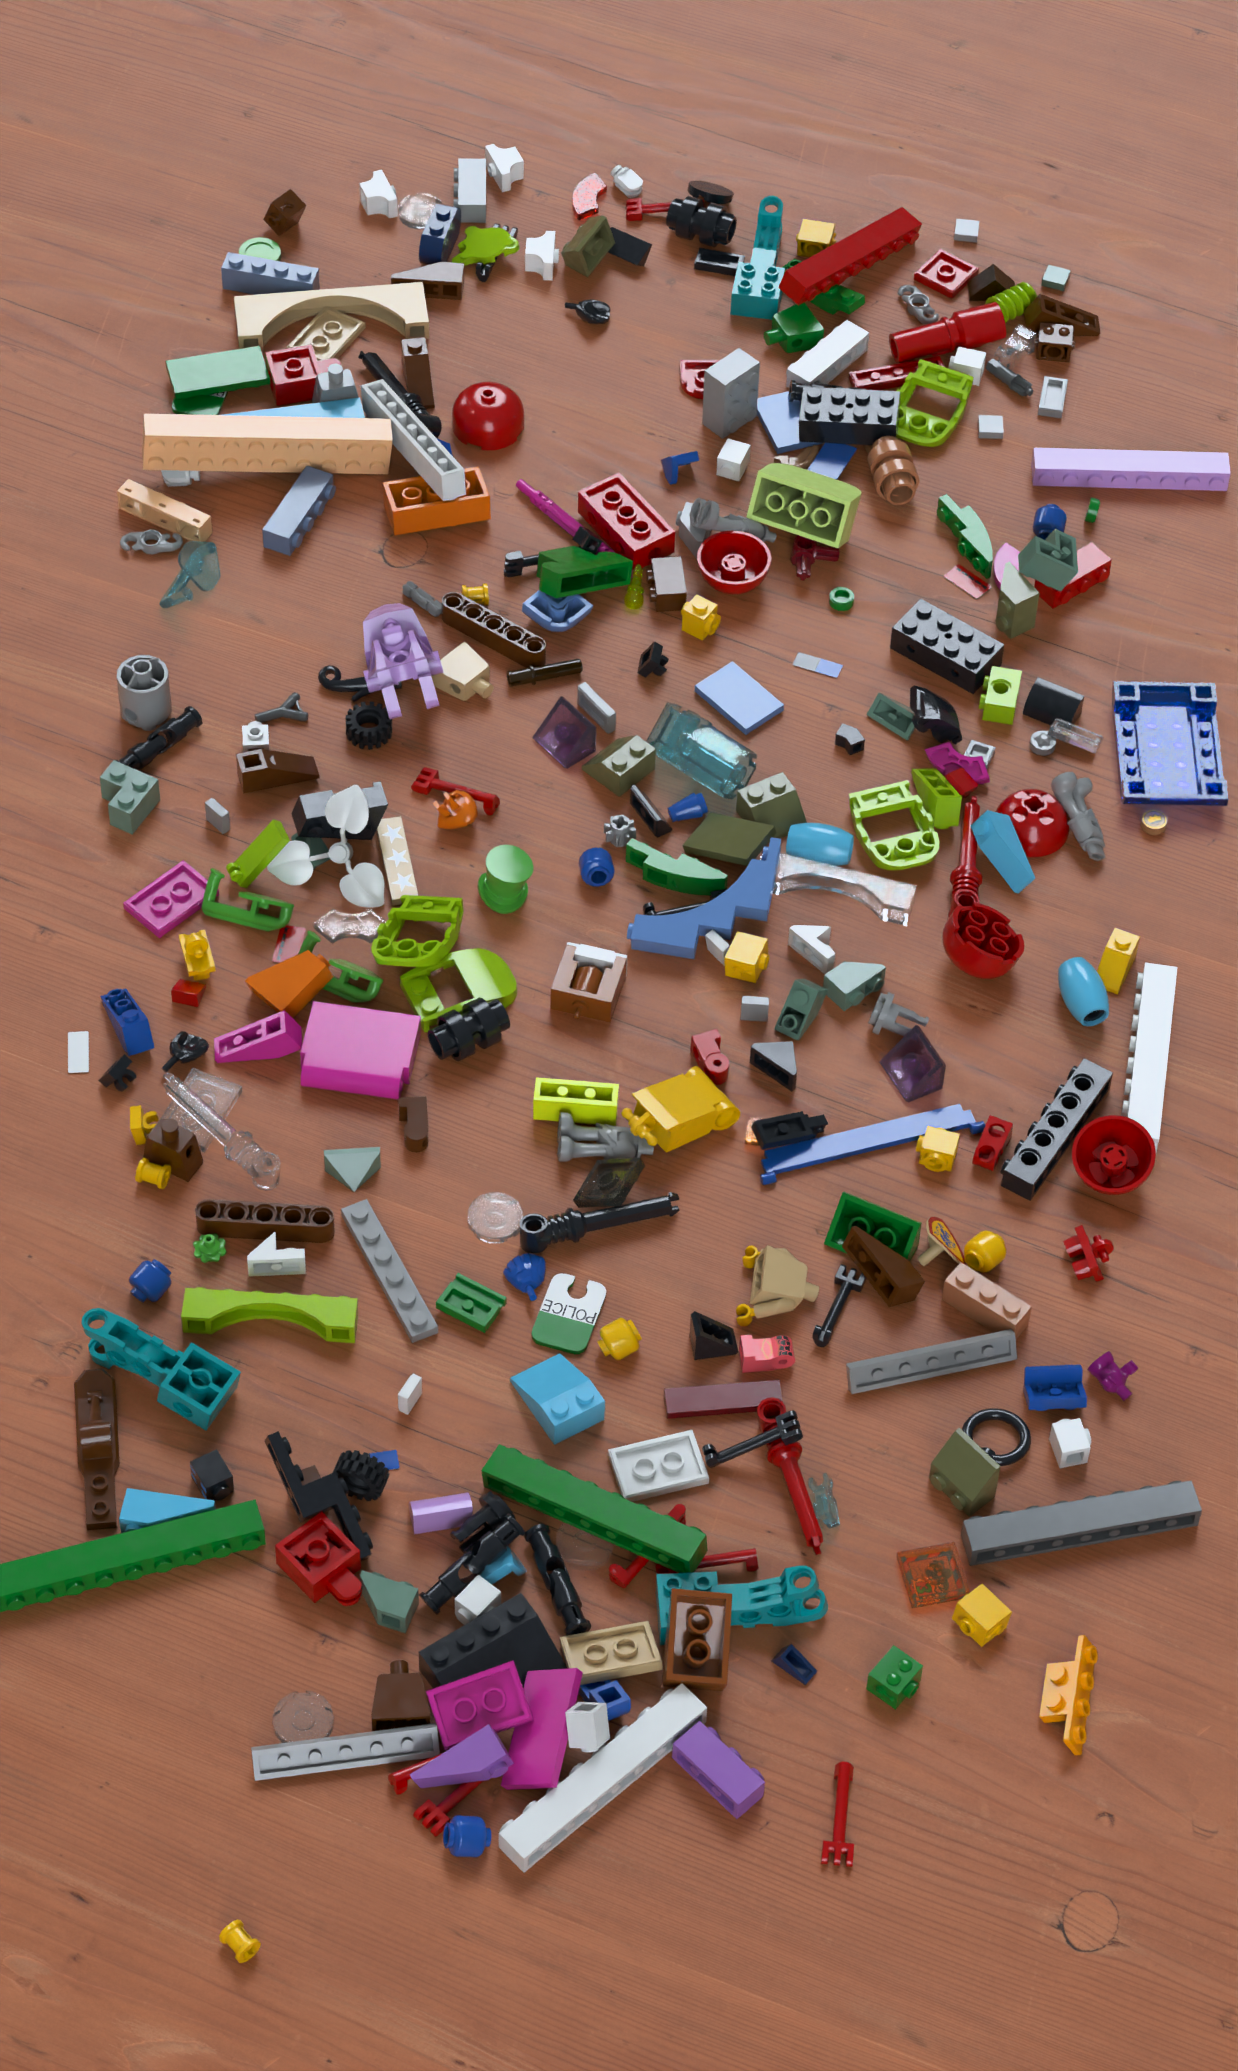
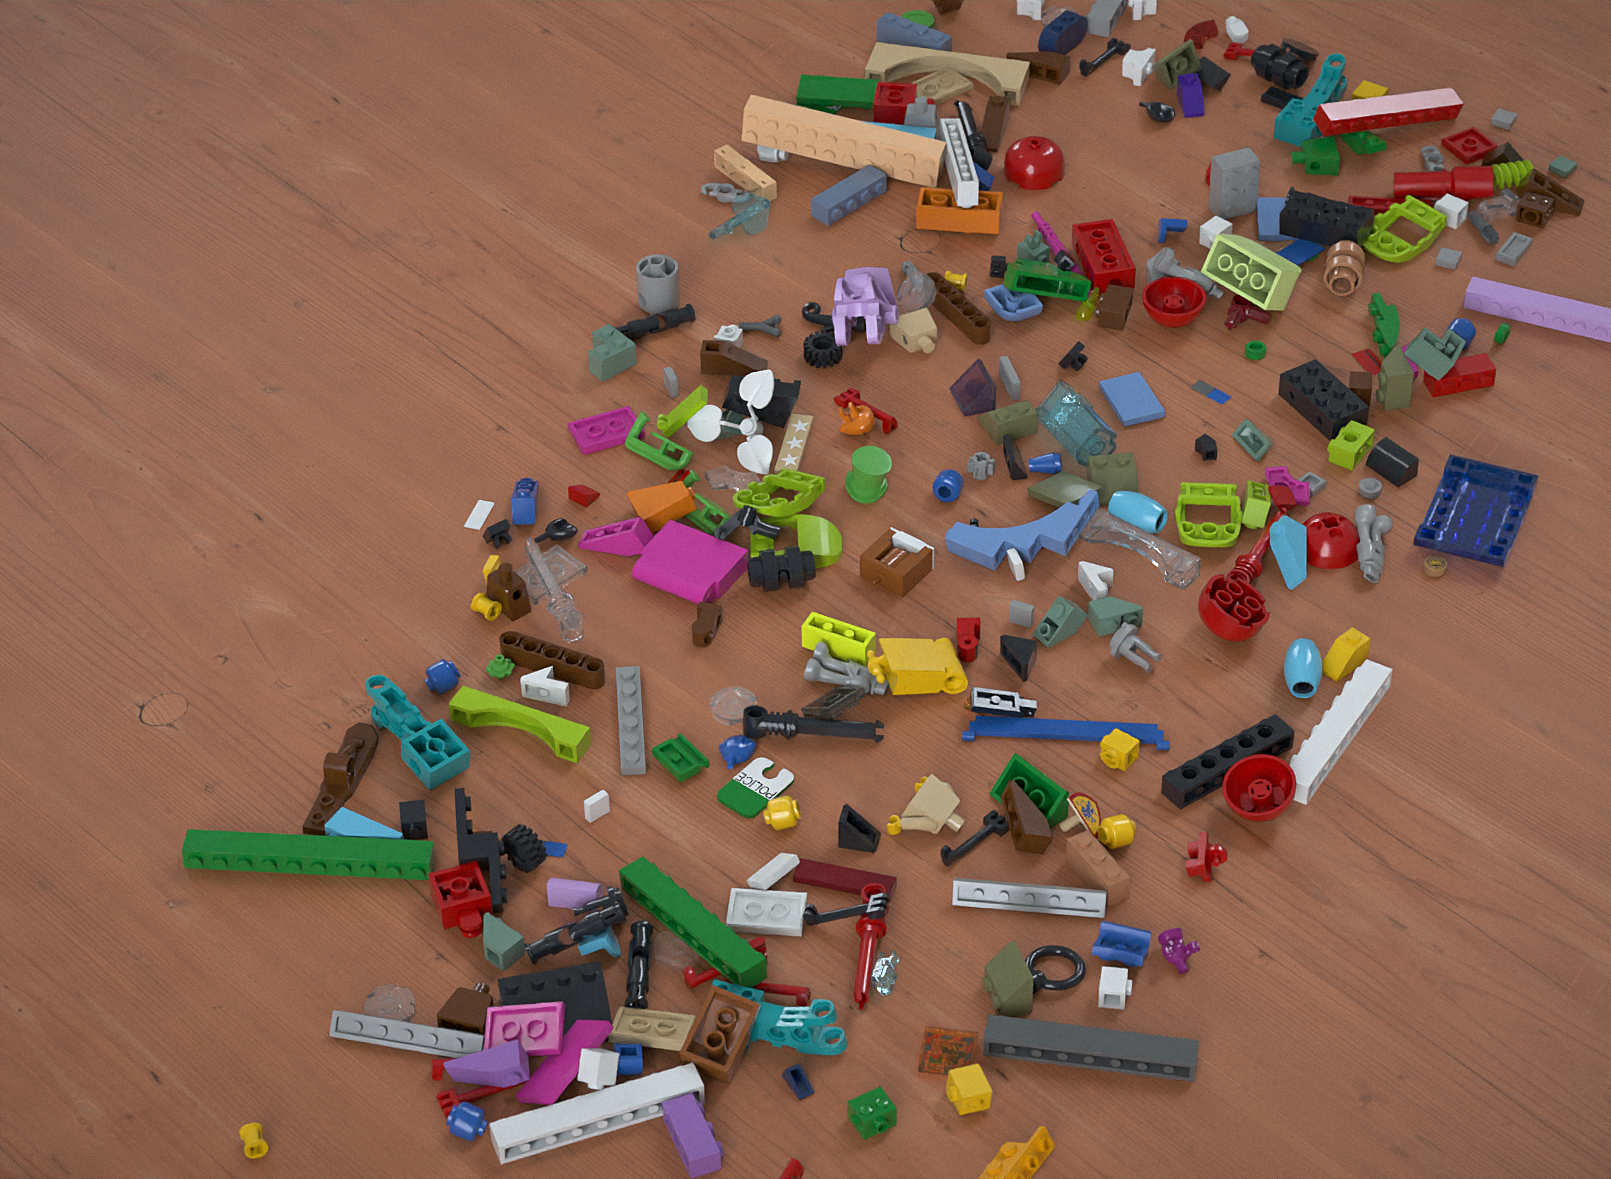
camera: 25 degrees right, 10 degrees down
(197, 955) = (601, 469): yellow hips -> none
(352, 1165) = (642, 640): slope -> none
(404, 977) = (748, 518): none -> black pin
(443, 623) = (916, 292): none -> clear tile
(476, 1600) = (566, 956): white brick -> none
(485, 245) = (1095, 49): lime tile -> none
(543, 672) = (981, 345): dark brown axle -> none
(544, 534) = (1033, 248): none -> sand green brick
(560, 1397) = (713, 843): medium azure slope -> none
(618, 282) = (1190, 95): none -> dark purple slope
(643, 1414) = (773, 871): none -> white tile
(680, 875) = (1010, 506): green slope -> none
(700, 617) = (1128, 335): yellow brick -> none
(746, 957) = (1034, 576): yellow head -> none
(765, 1354) = (895, 856): coral leg -> none
(830, 355) = (1338, 179): white brick -> none
(914, 1066) = (1131, 687): clear purple slope -> none
(934, 714) = (1285, 443): black slope -> none
(978, 616) = (1361, 385): none -> reddish brown brick
(992, 1143) = (1167, 757): red leg -> none
(1075, 735) = (1399, 488): clear tile -> none

